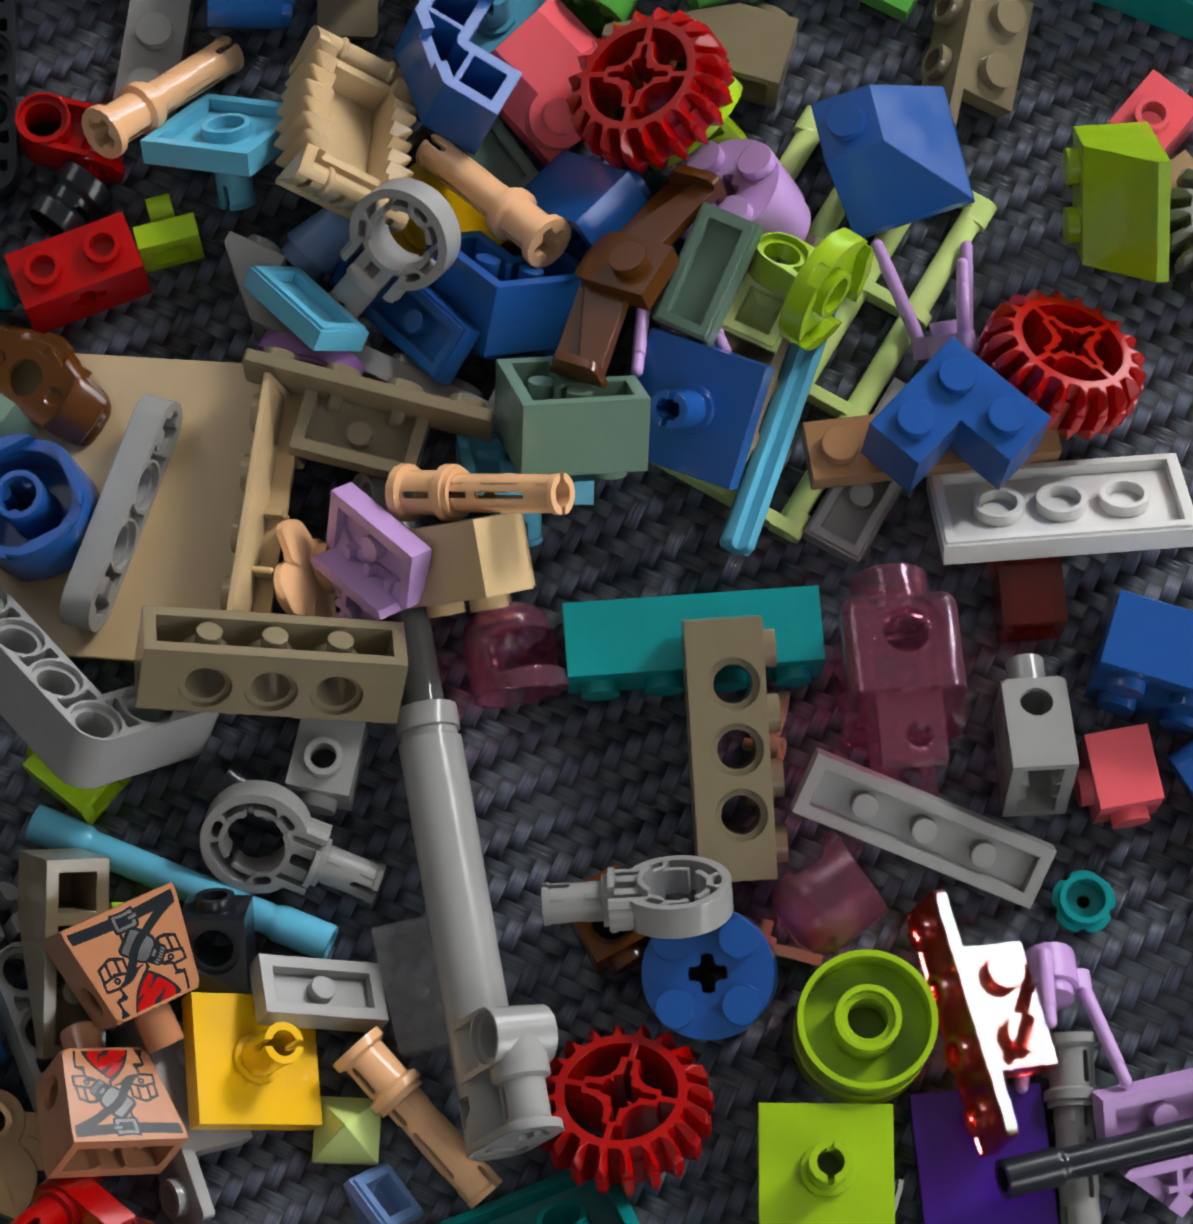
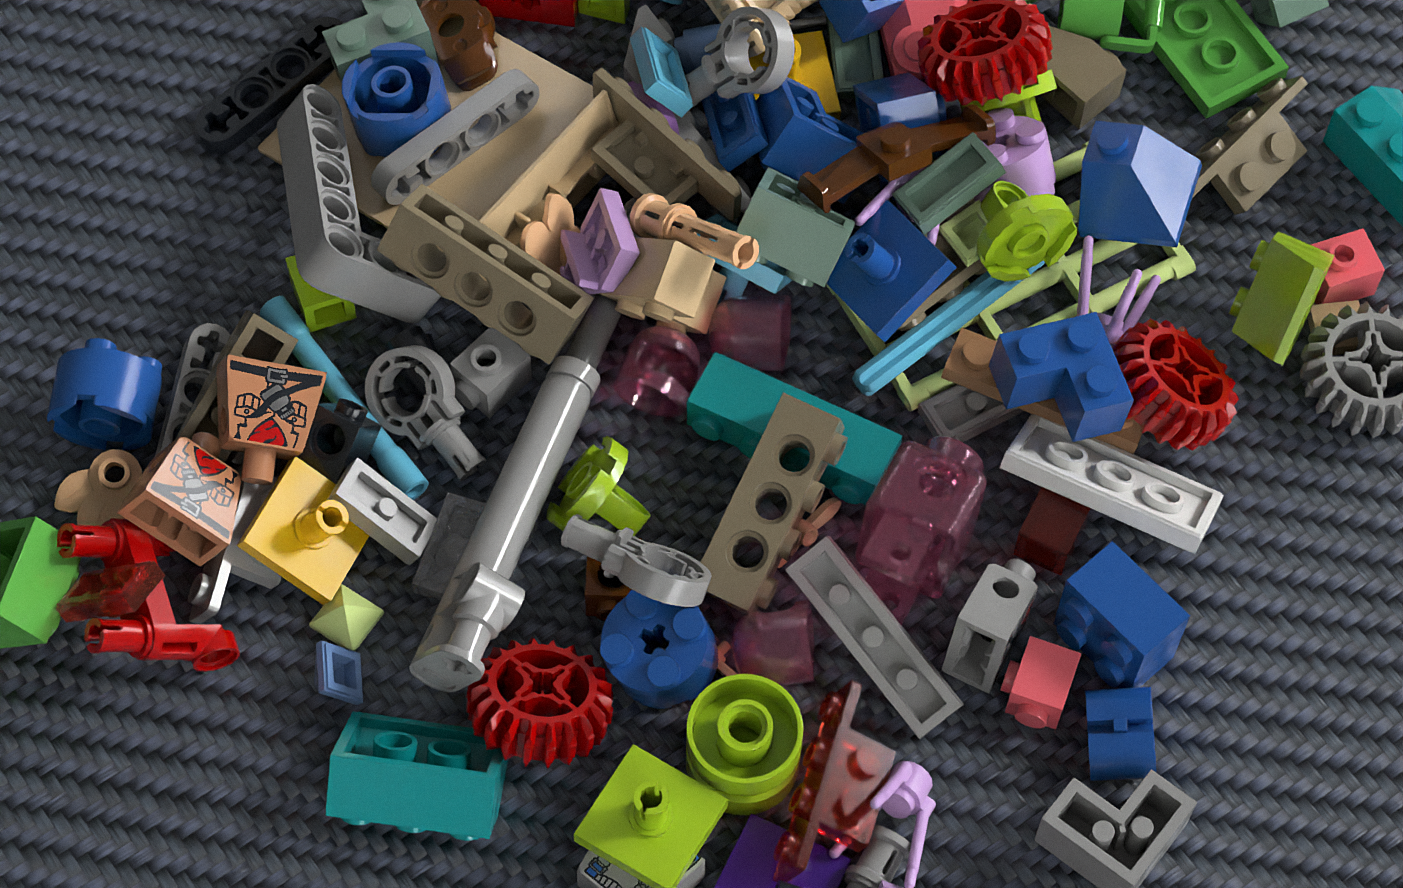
camera: 30 degrees right, 10 degrees down
(398, 1094) = (394, 611): light nougat pin -> none
(508, 211) = (840, 83): light nougat pin -> none
(531, 835) = (593, 488): none -> lime tile
(581, 556) = (752, 330): none -> clear pink helmet
(1087, 885) = (965, 743): teal plate -> none

